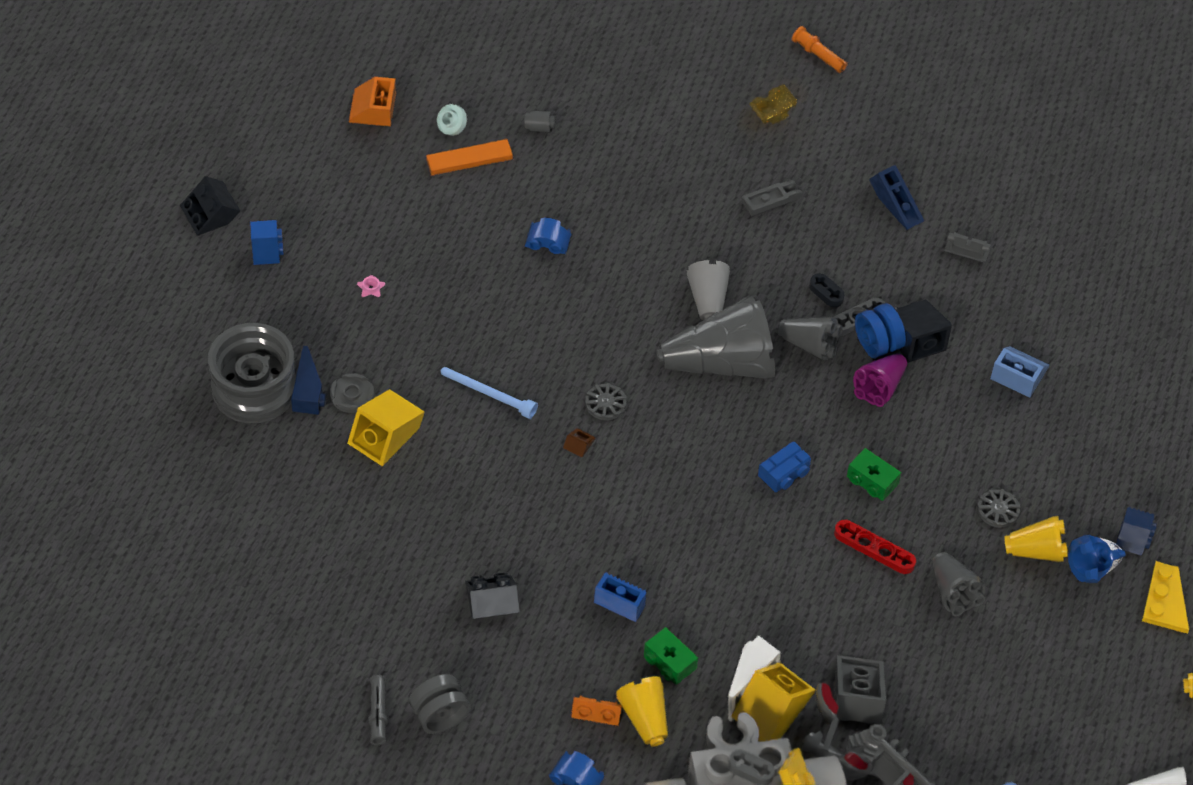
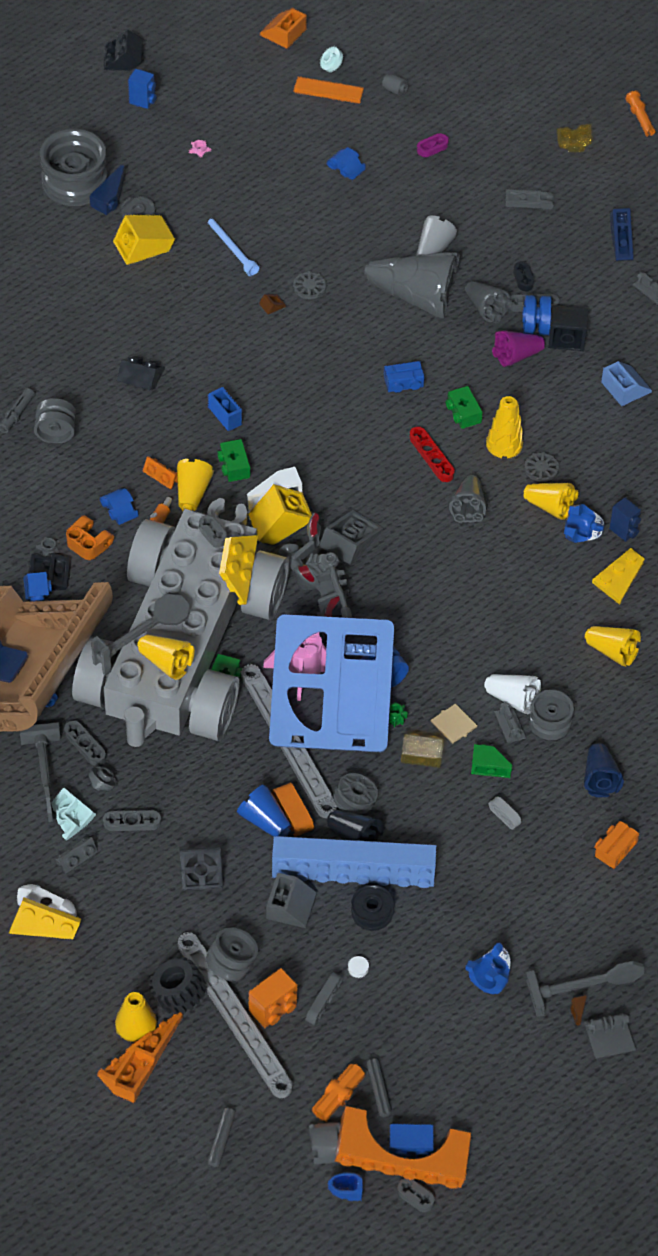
camera: 30 degrees right, 0 degrees up
(626, 177) = (432, 145): none -> magenta plate
(630, 763) = (161, 511): none -> orange piece
(943, 485) = (506, 433): none -> yellow cone

